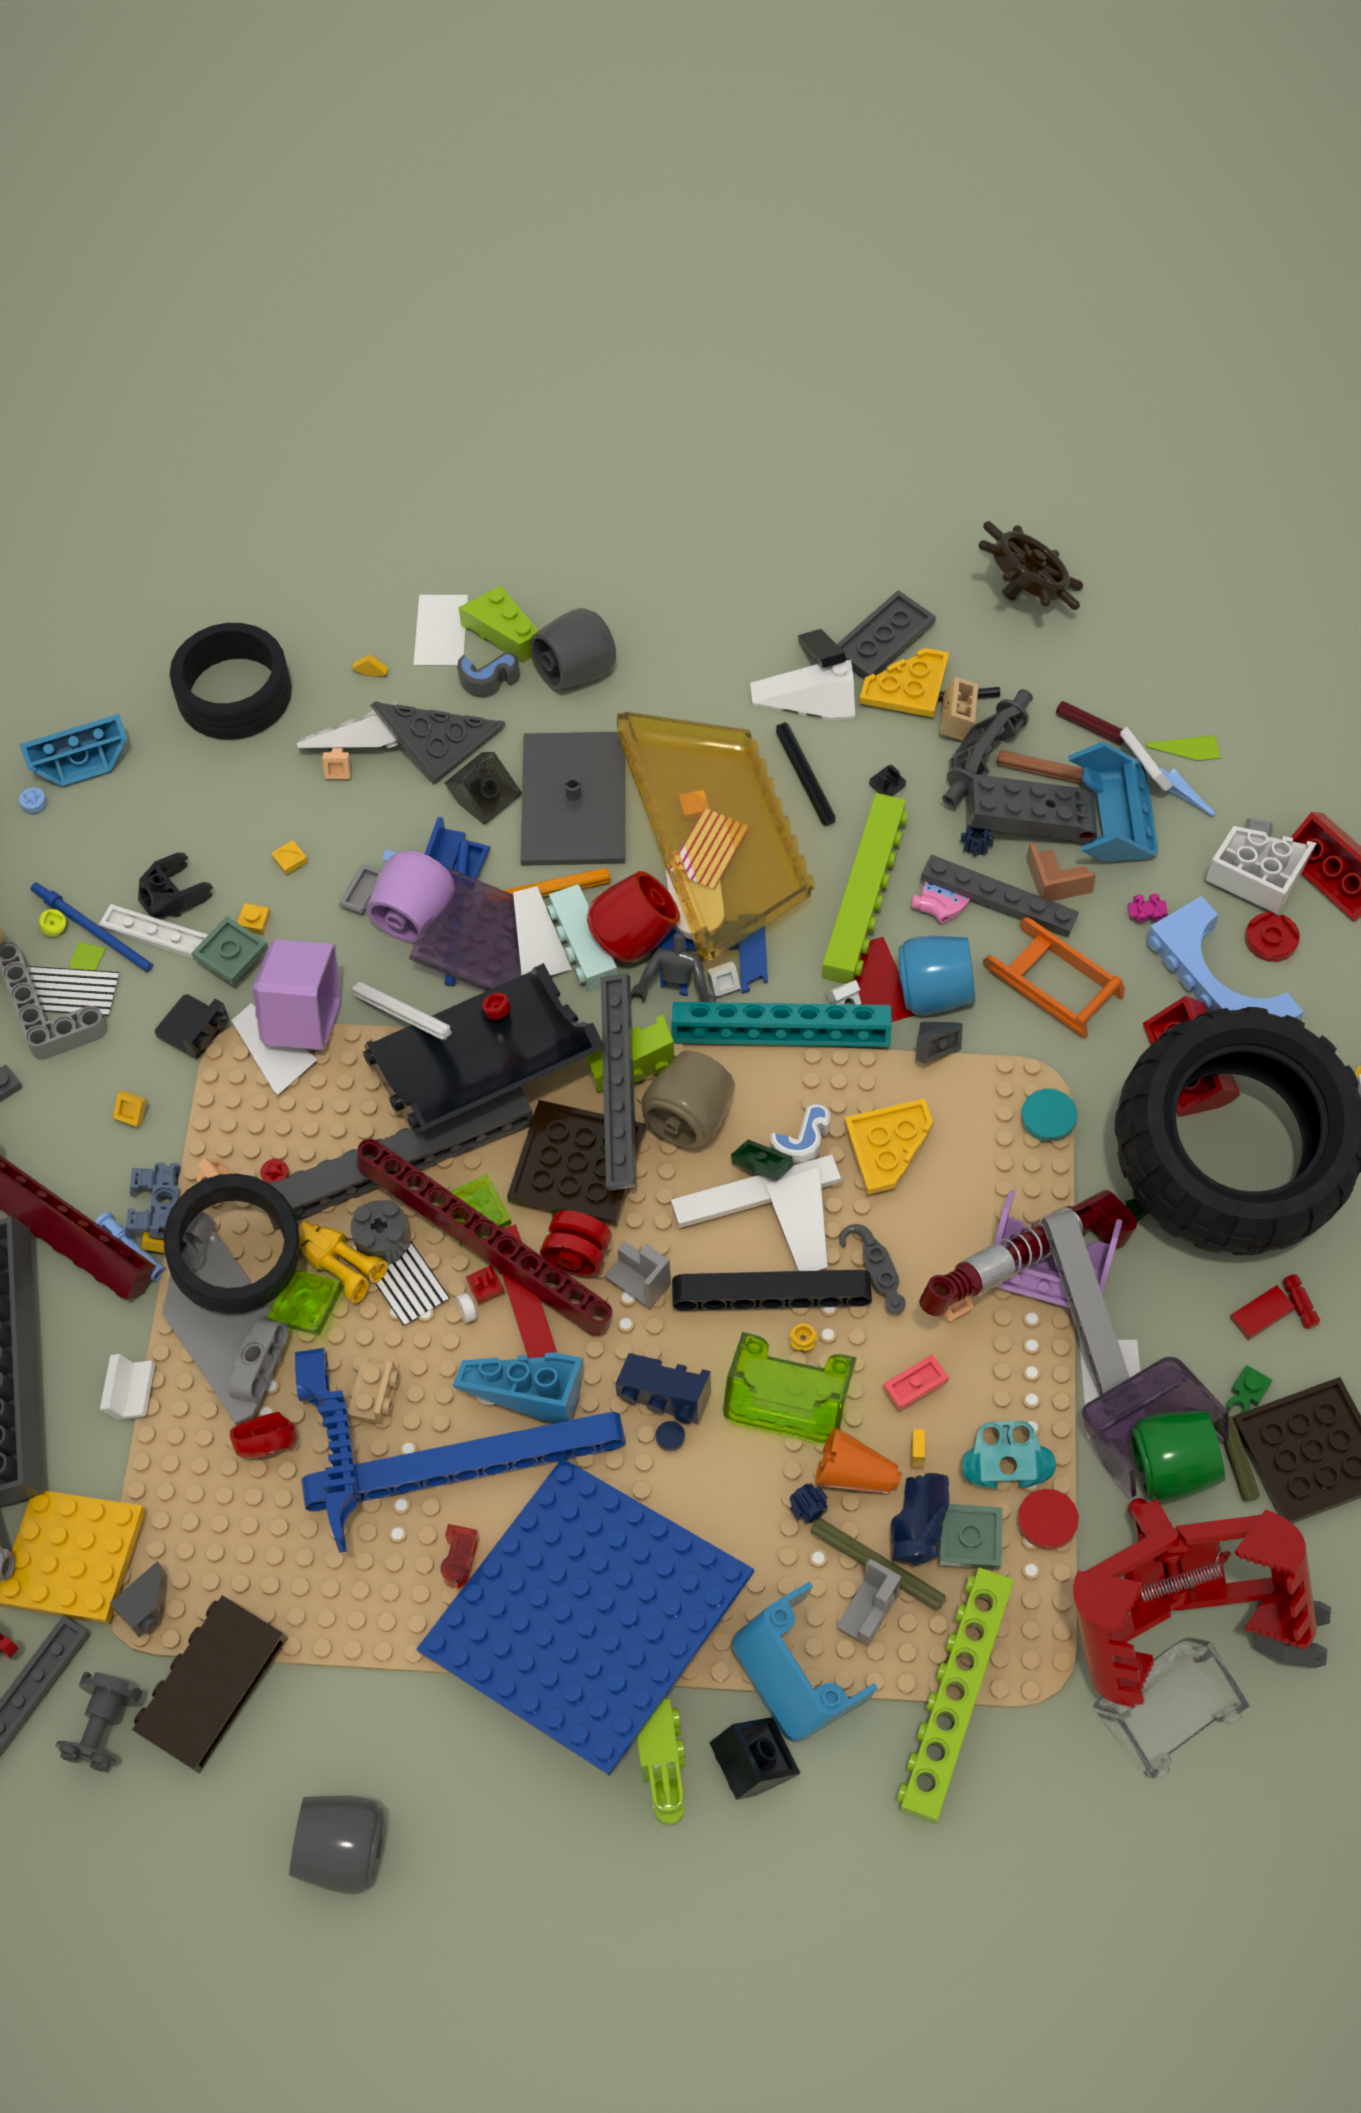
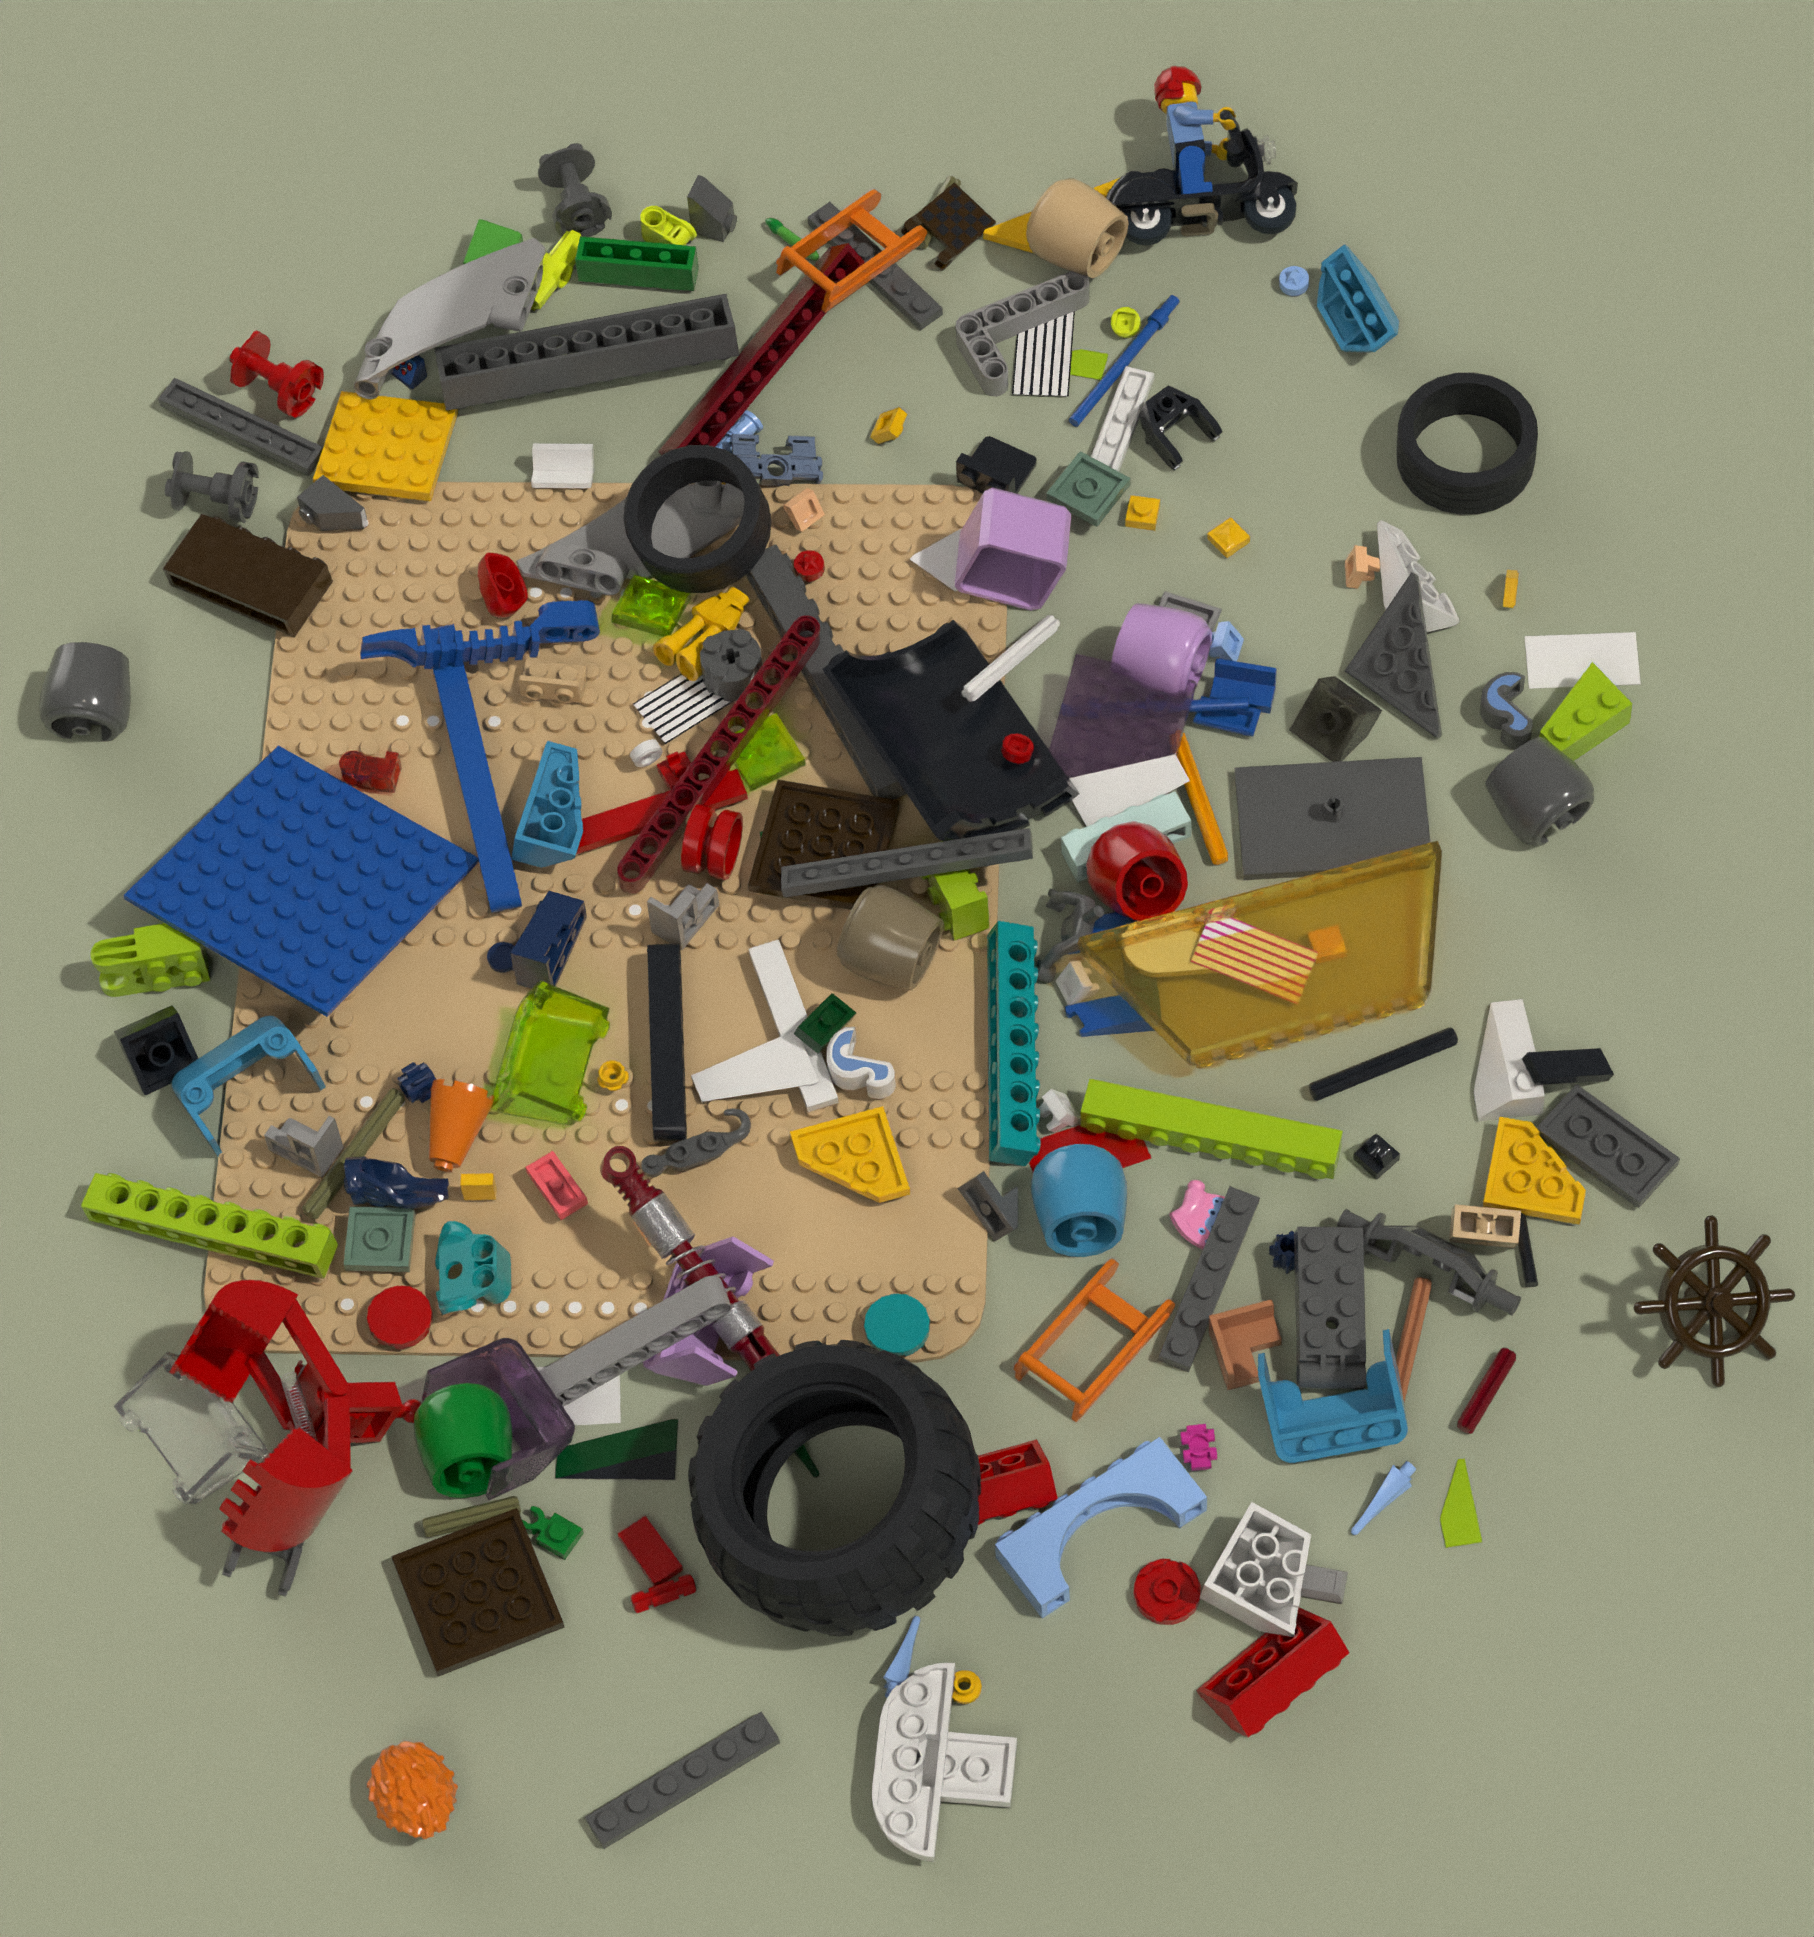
camera: 90 degrees right, 0 degrees up
(1145, 759) = (1418, 1442): white tile -> none
(1167, 1325) = (626, 1455): none -> dark green sticker

